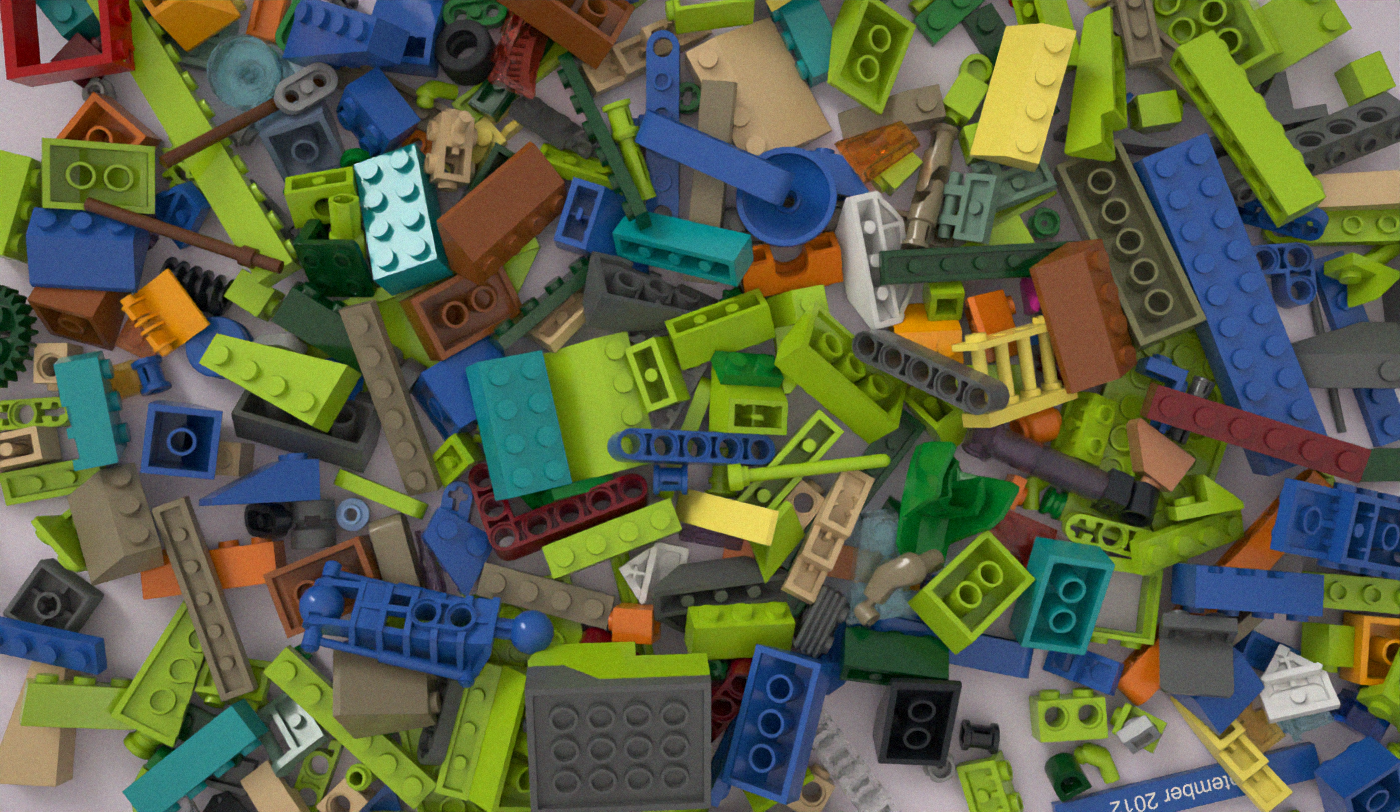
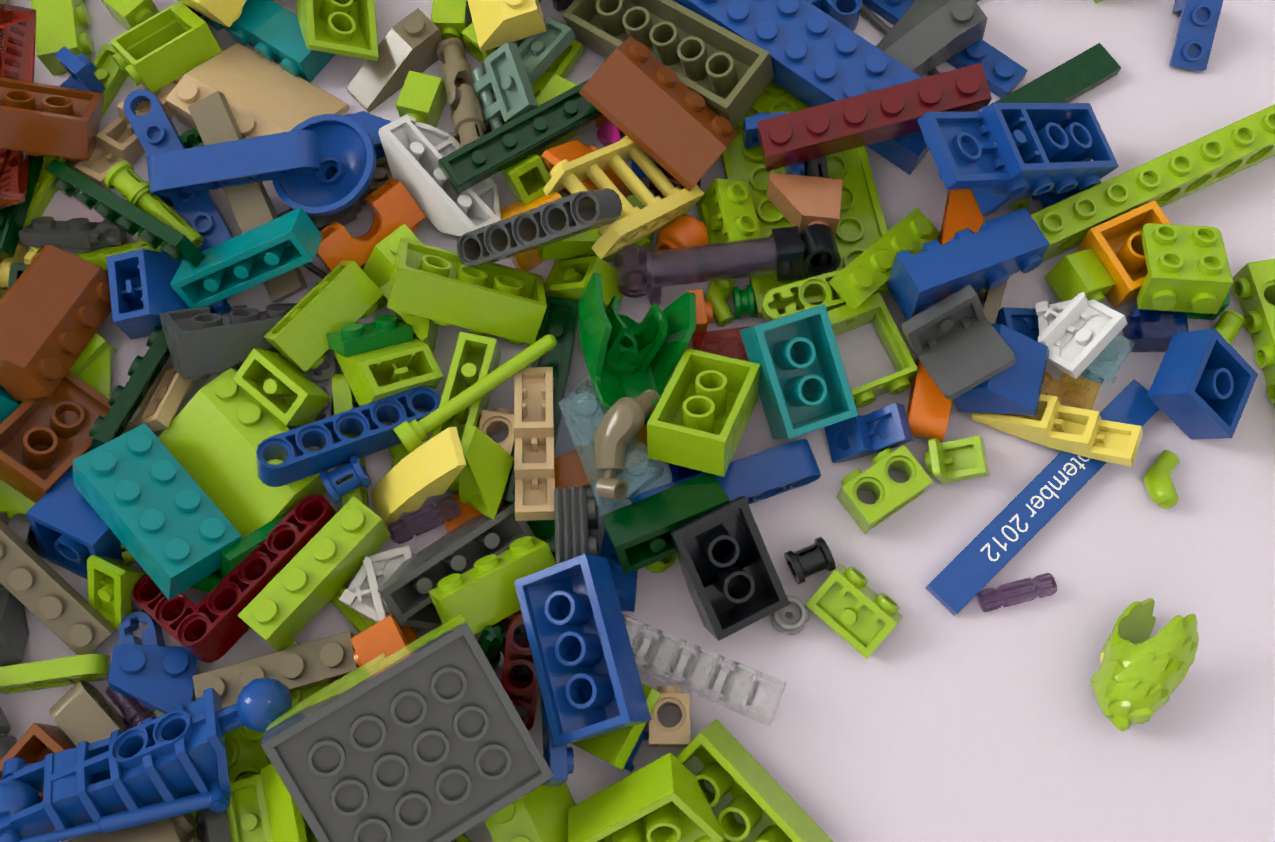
camera: 25 degrees left, 15 degrees down
(362, 510) = (40, 712): light blue plate -> none
(877, 149) = (394, 86): clear orange wing -> none
(1048, 215) = (583, 69): green plate -> none
(1062, 771) = (919, 547): dark green plate -> none
(1098, 757) = (941, 512): lime arm -> none
(1138, 733) = (958, 458): light grey plate -> none
(1207, 500) = (879, 213): lime slope -> none

